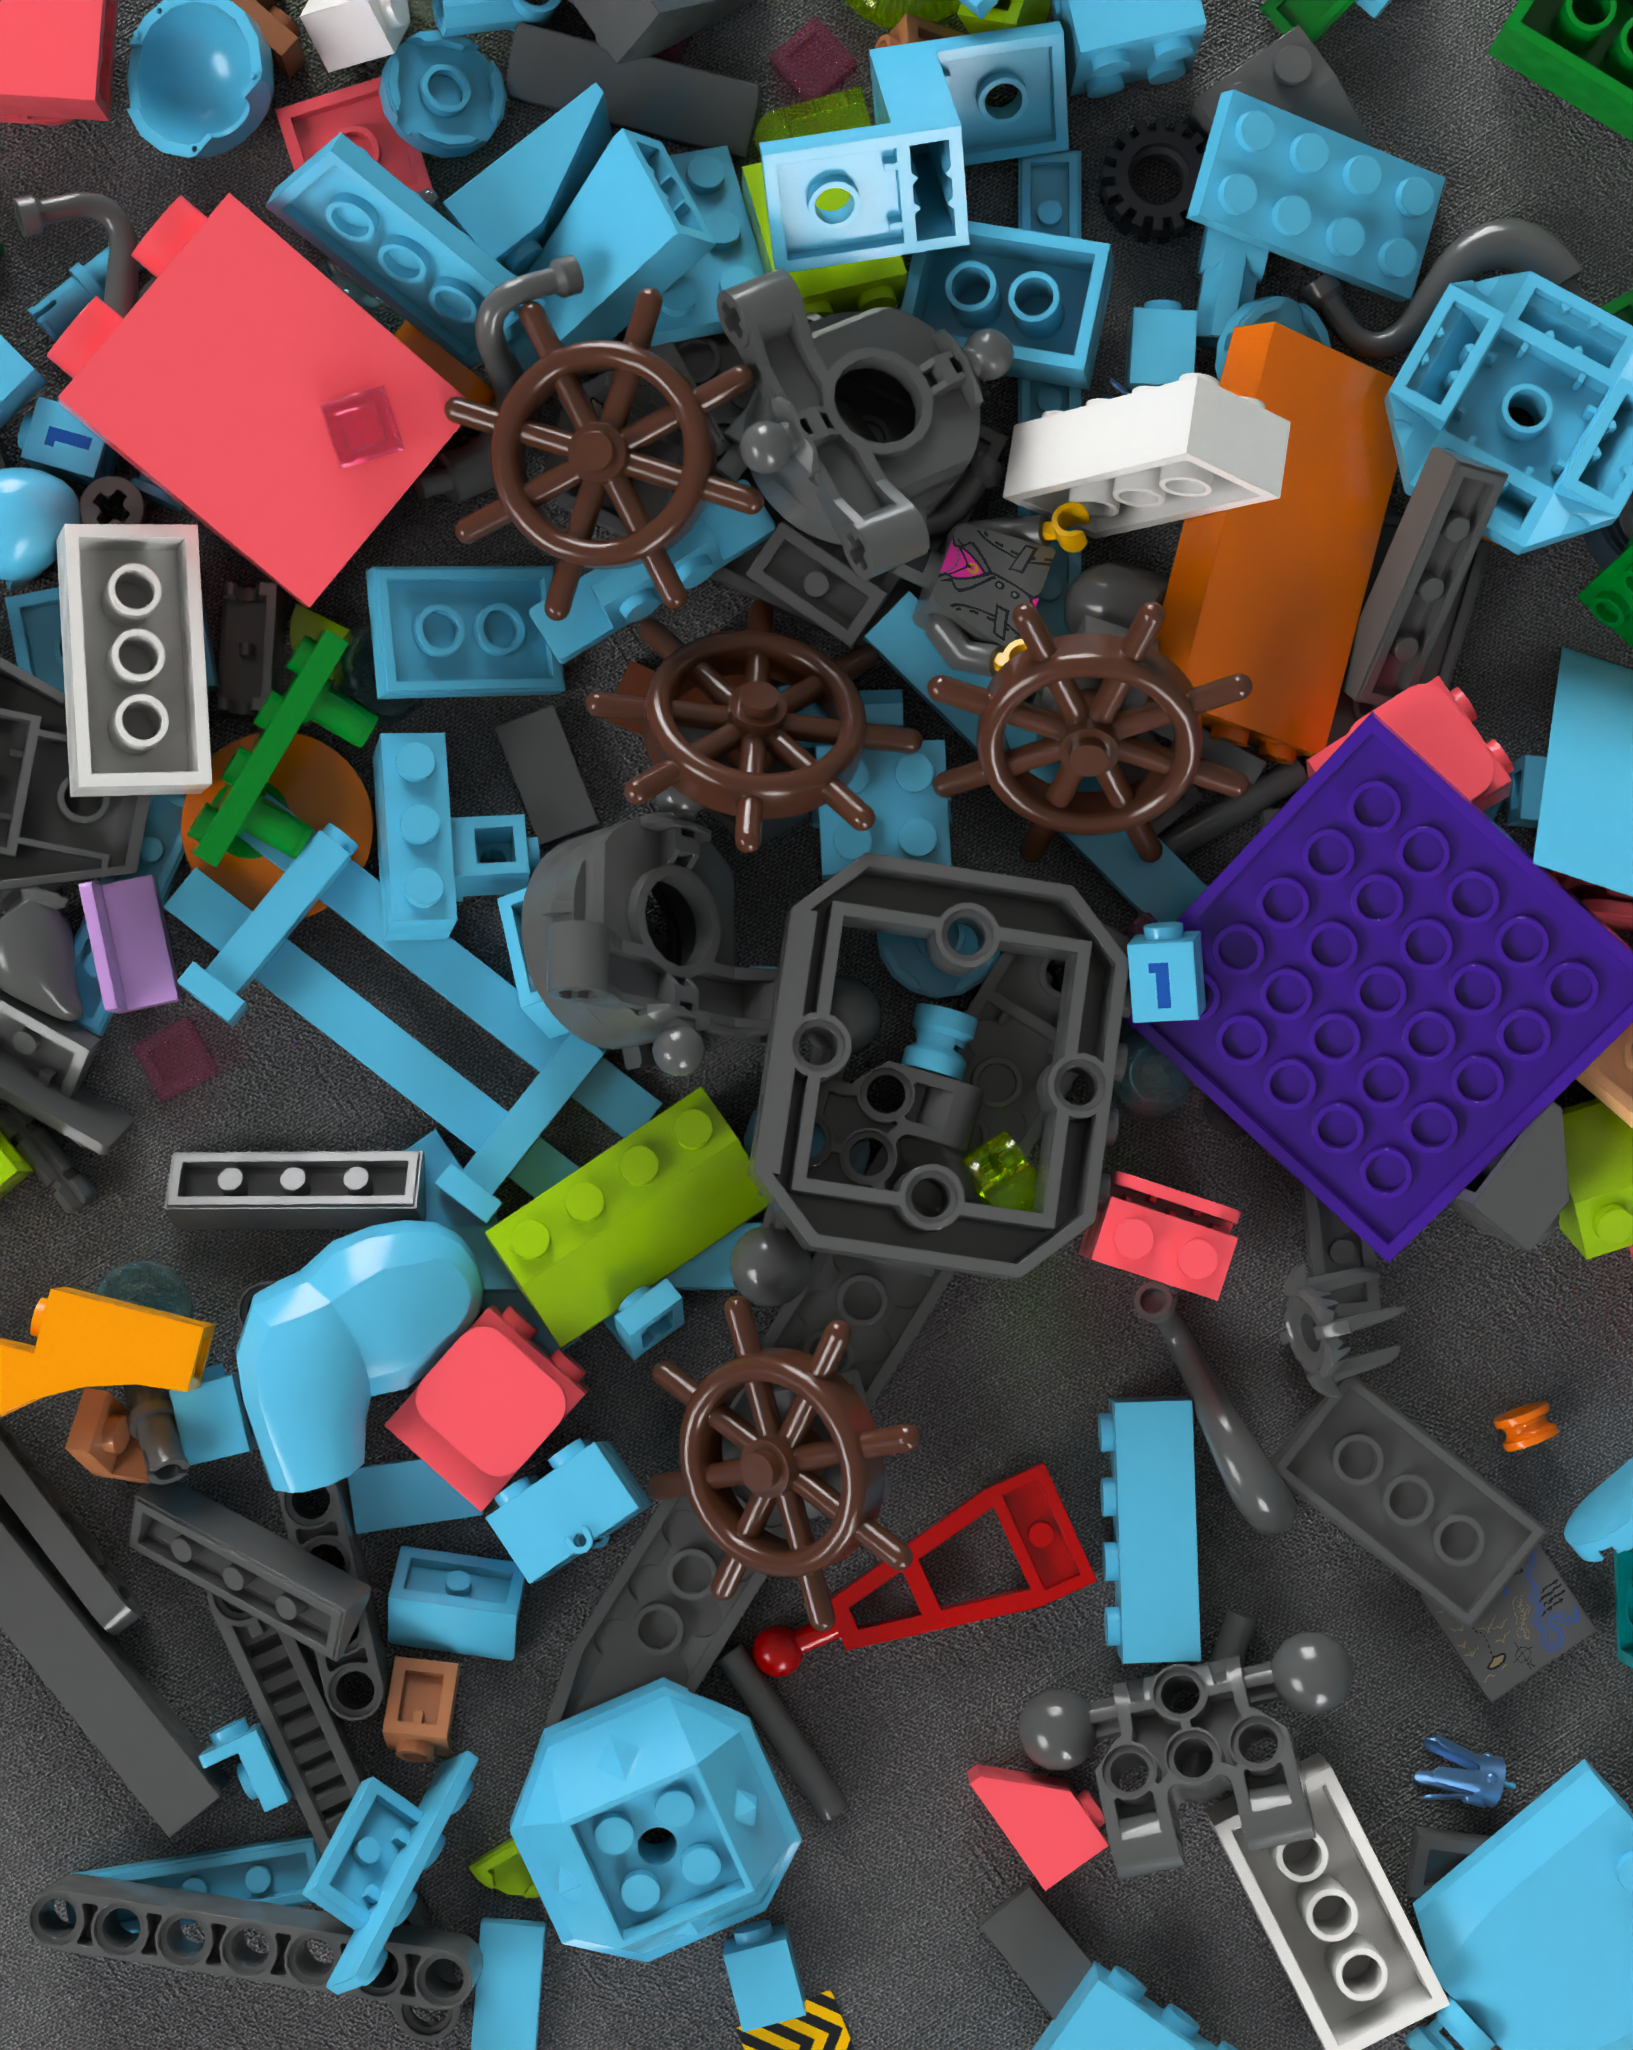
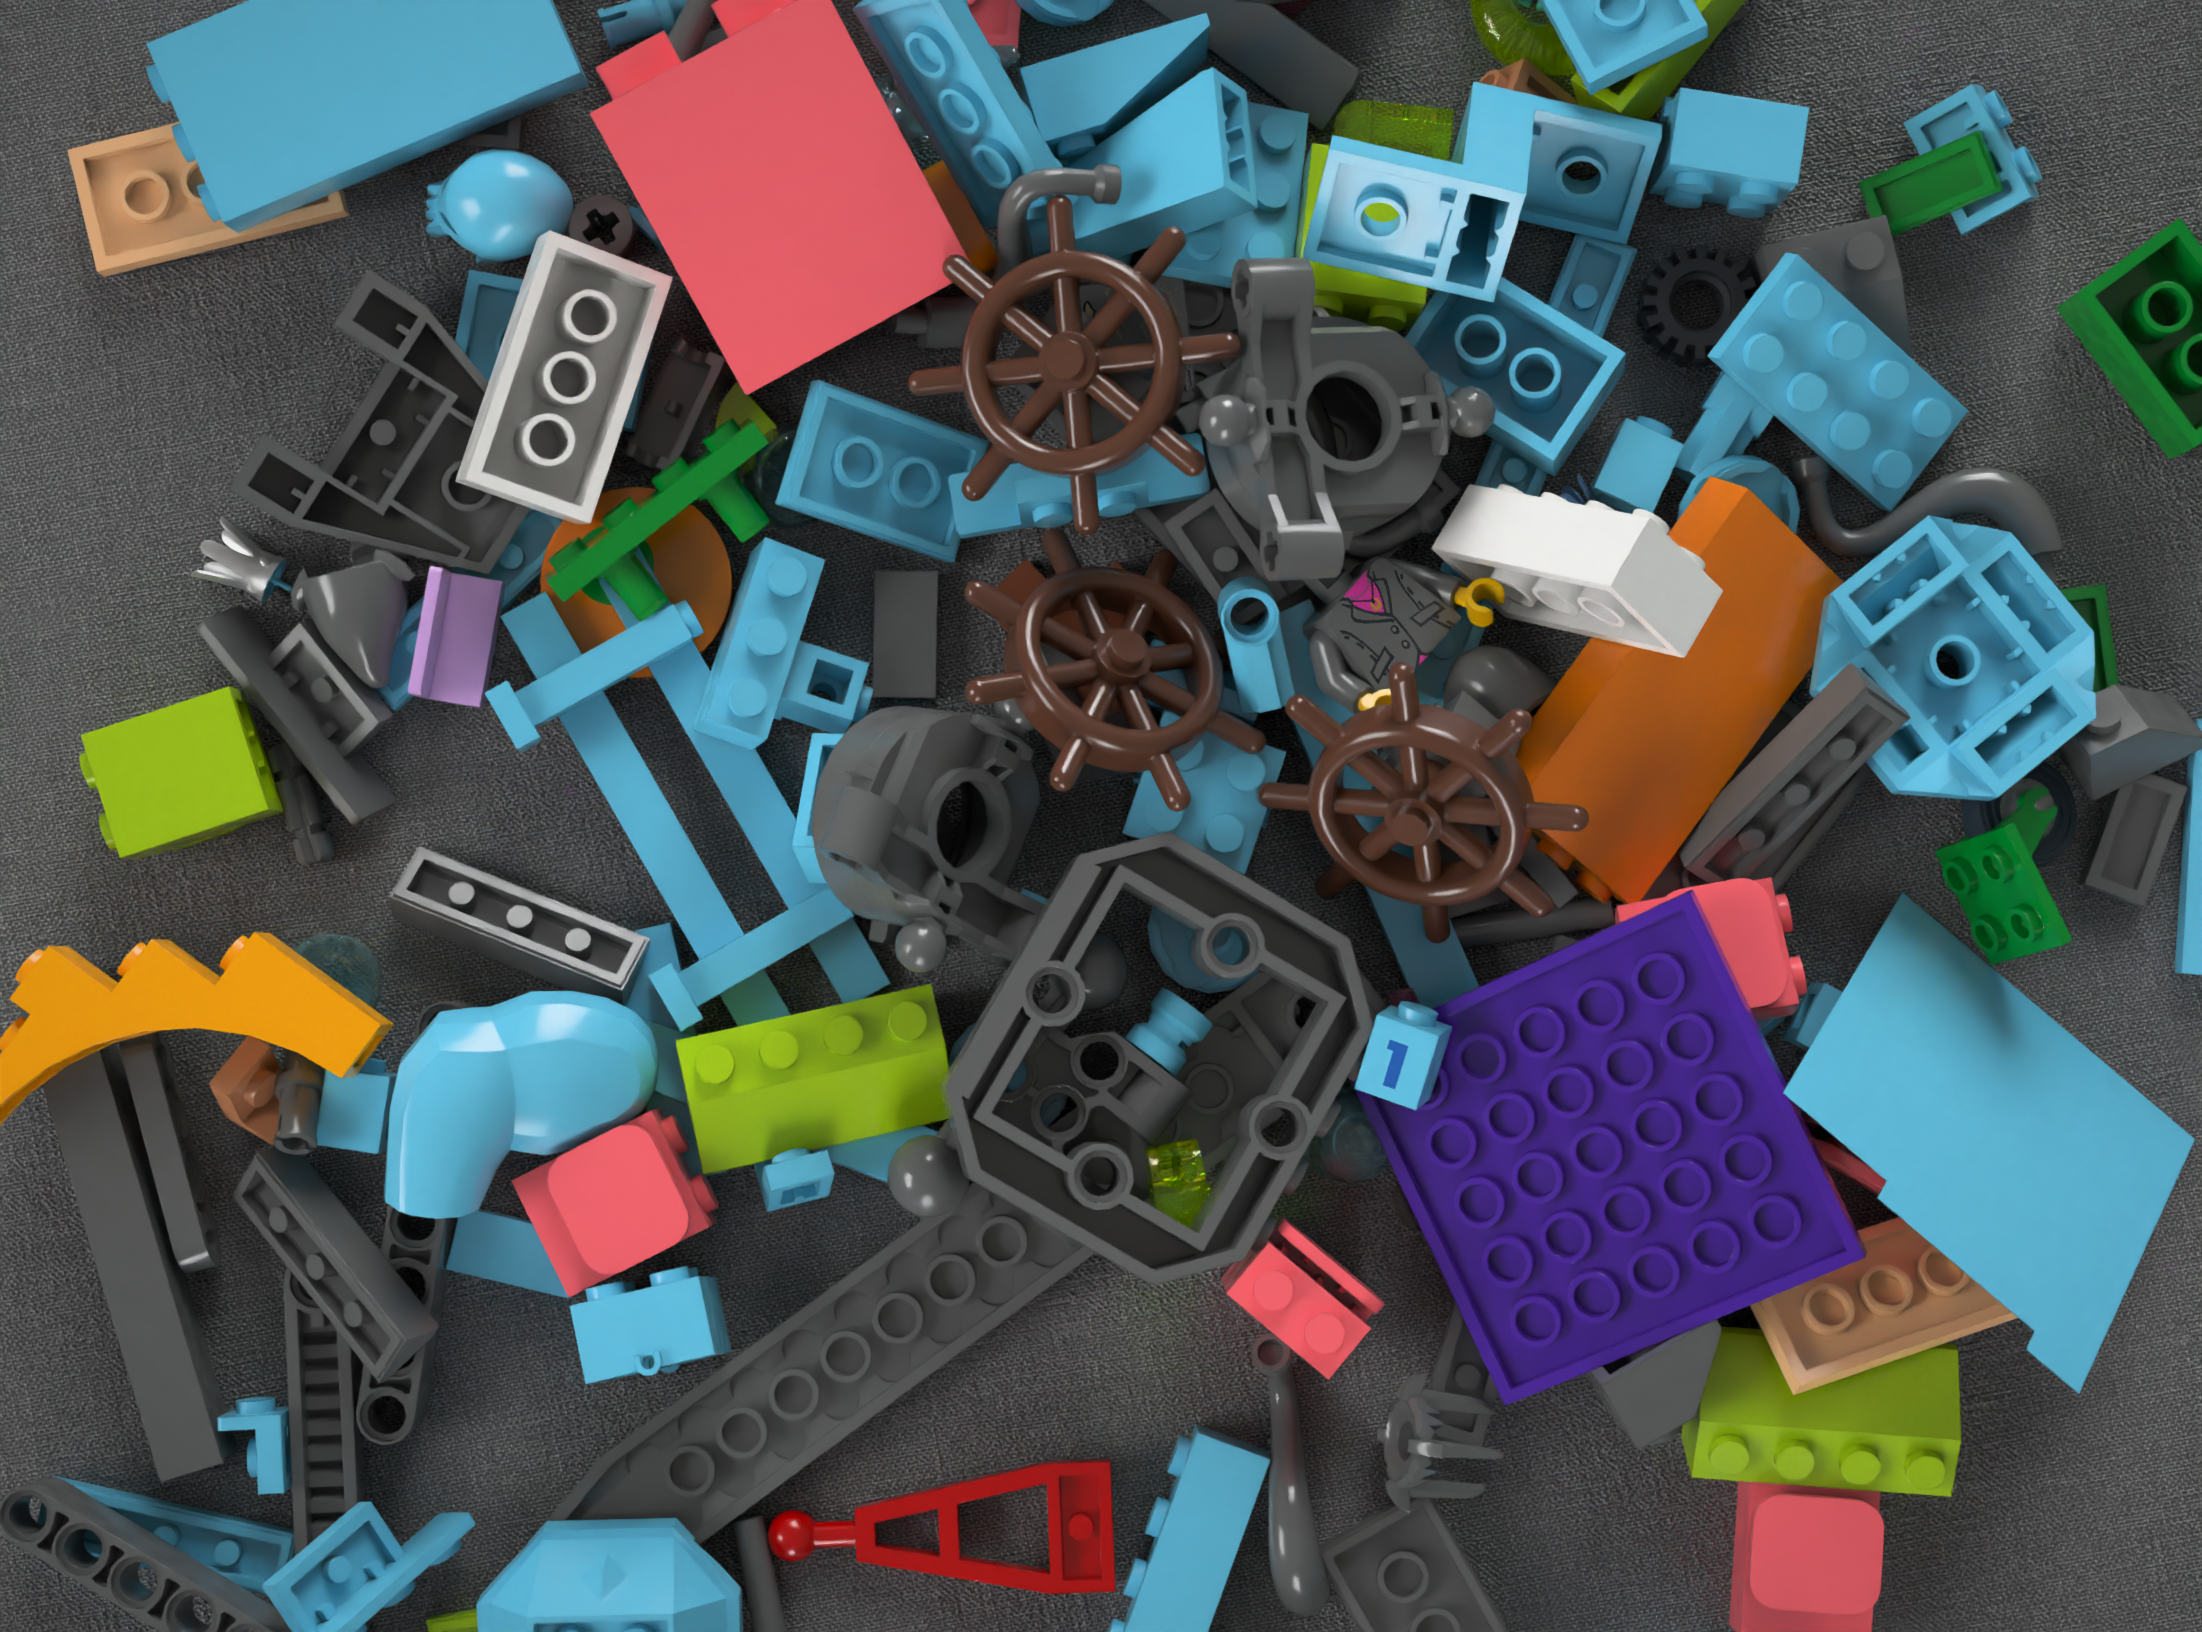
camera: 25 degrees right, 0 degrees up
(63, 446) = (578, 150): medium azure brick -> none
(176, 1060) = (456, 761): clear pink tile -> none
(361, 427) = (860, 249): clear pink tile -> none
(421, 1708) = (441, 1455): nougat bracket -> none
(455, 1603) = (511, 1370): medium azure panel -> none
(808, 1453) = (890, 1365): reddish brown brick -> none
(813, 62) = (1420, 67): clear pink tile -> none
(879, 655) = (1256, 650): none -> medium azure piece
(1526, 1426) = (1573, 1608): orange bush -> none

